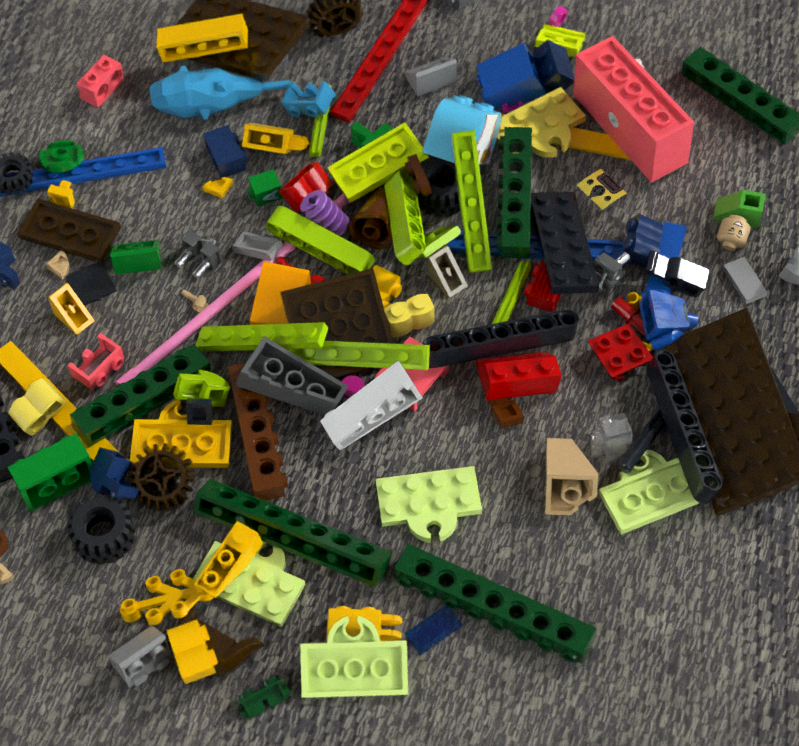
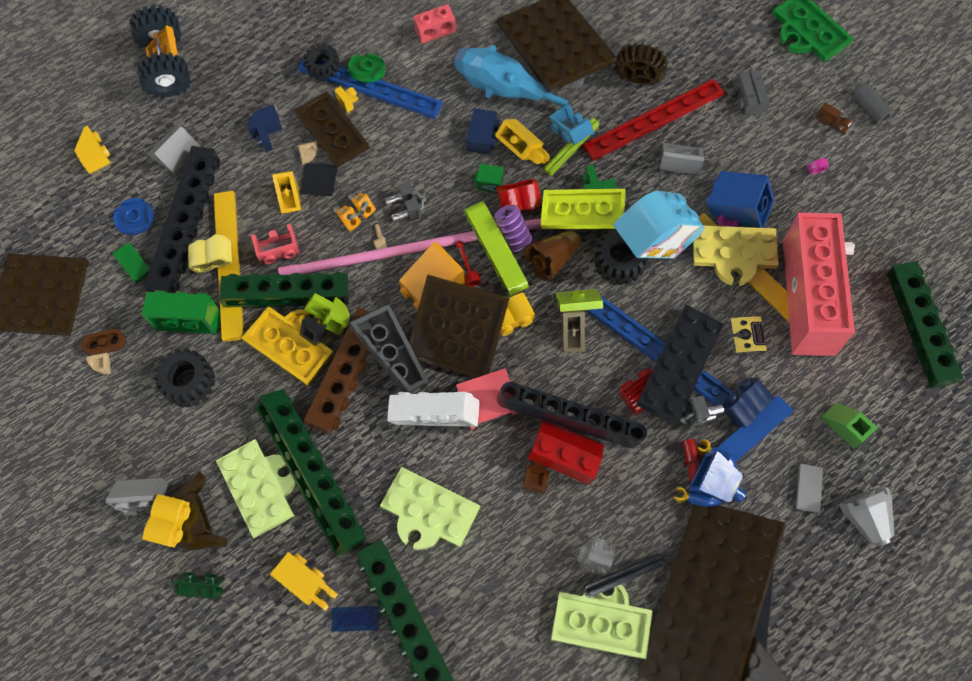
camera: 35 degrees right, 10 degrees up
(109, 473) = (216, 340): dark blue brick -> none
(136, 257) = (362, 176): green slope -> none
(150, 479) = (243, 378): dark brown gear -> none
(152, 294) = (348, 215): none -> light orange piece
(170, 599) = (214, 474): yellow plant -> none
(202, 38) = (523, 31): yellow brick -> none
(218, 187) = (459, 157): yellow tile -> none
(229, 560) = (244, 465): yellow slope -> none
(249, 336) = (402, 306): lime plate -> none
(257, 246) = (451, 222): light grey tile -> none
(354, 383) = (438, 380): dark pink tile -> none
(354, 664) = (275, 608): yellowish green plate -> none
(367, 355) = (452, 362): lime tile -> none
(405, 217) = (568, 268): lime beam -> none
(410, 315) = (525, 350): light yellow brick -> none
(421, 182) = (603, 232): reddish brown plate -> none
(471, 201) = (626, 286): lime tile -> none
(513, 292) = (610, 382): lime axle -> none
(515, 244) = (645, 343): dark green brick -> none
(553, 66) = (782, 207): dark blue brick -> none
(566, 38) = (805, 187): neon yellow plate -> none
(568, 477) = (540, 564): tan slope -> none
(620, 351) = (660, 485): red hinge -> none
(677, 273) = (754, 448): piece -> none
(684, 427) = (654, 593): black beam -> none
(733, 232) = (828, 441): tan head -> none

